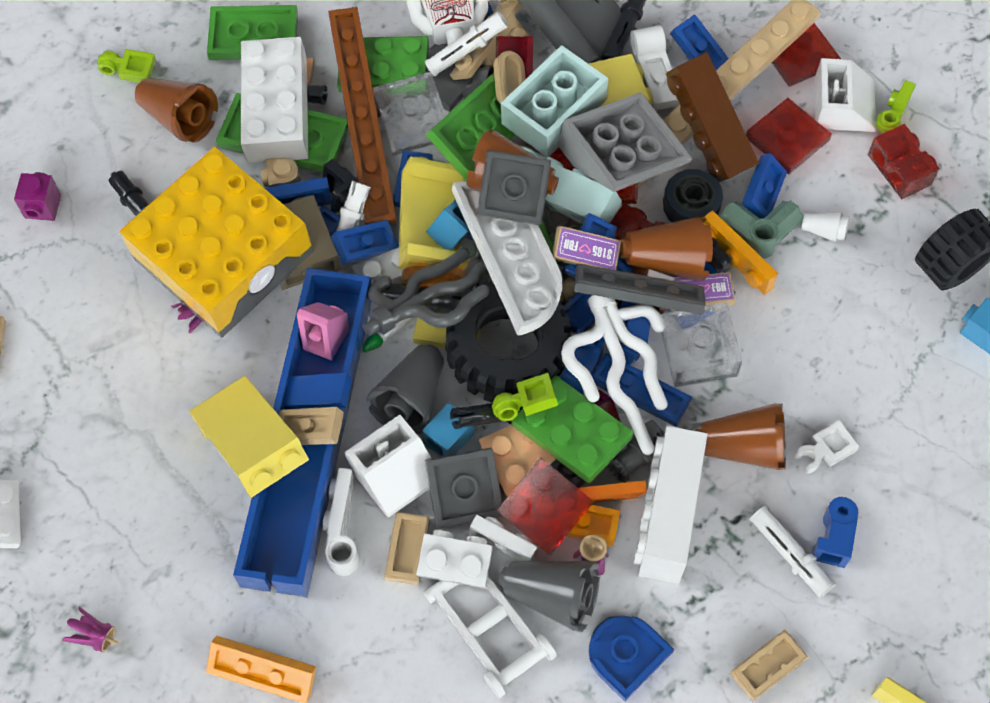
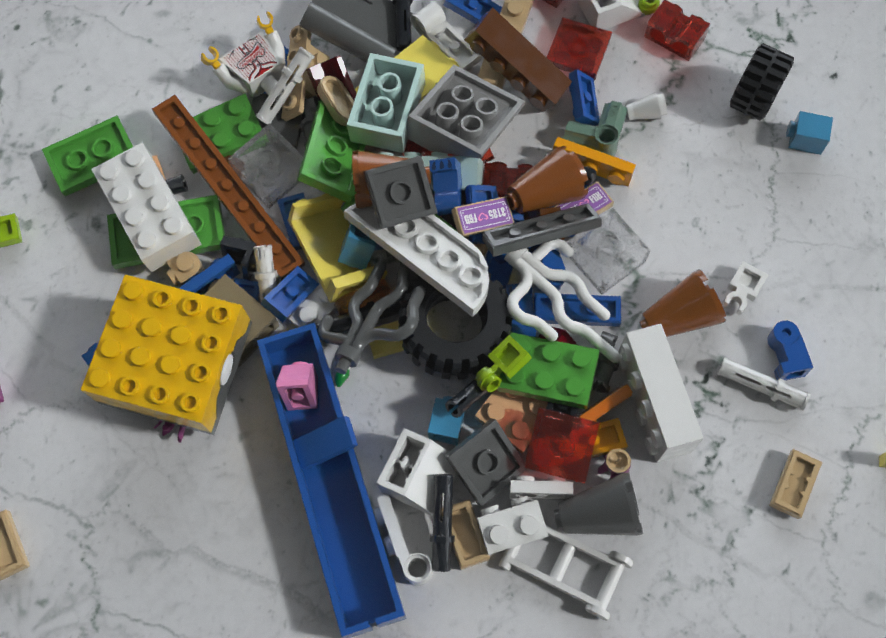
camera: 25 degrees left, 5 degrees up
(129, 194) = (61, 347): black axle -> none
(178, 106) = (61, 250): dark orange cone -> none
(249, 435) = (287, 509): light yellow panel -> none
(314, 425) = (335, 477): tan plate -> none
(382, 535) = (442, 528): none -> black pin
(409, 389) = (397, 402): dark grey cone -> none
(568, 203) = (446, 184): none -> blue leg
(626, 653) = (683, 530): blue tile -> none
(695, 185) = (533, 121): wheel -> none

